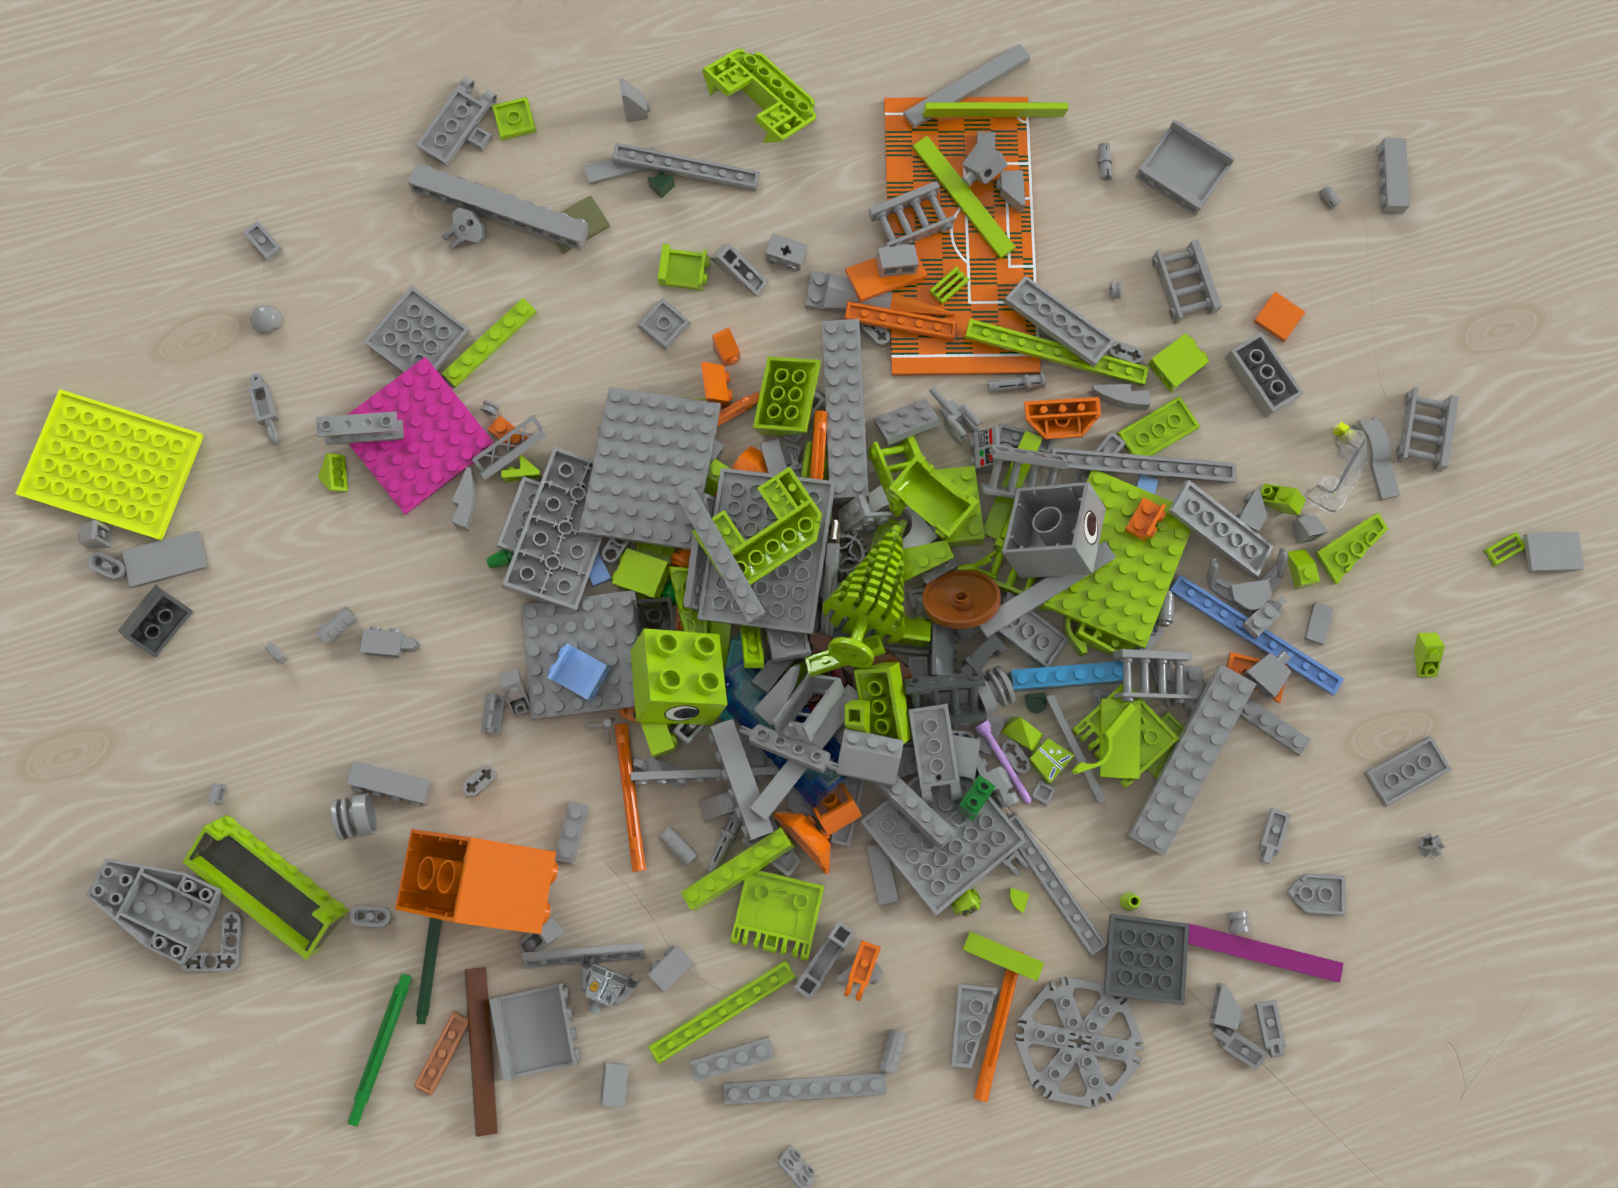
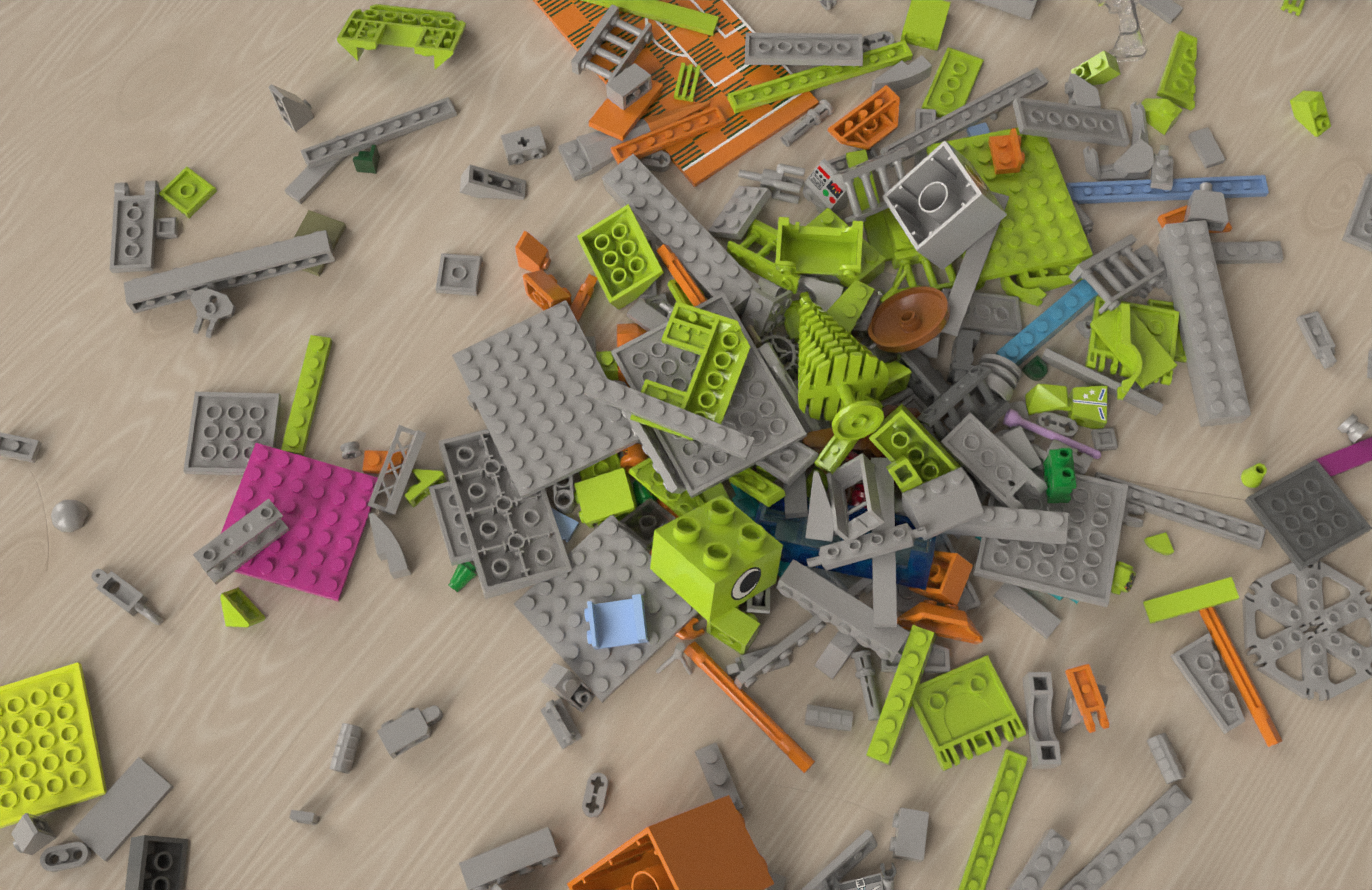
camera: 30 degrees left, 10 degrees down
(683, 268) = (441, 217): lime panel -> none
(1308, 528) = (1137, 78): light grey slope -> none

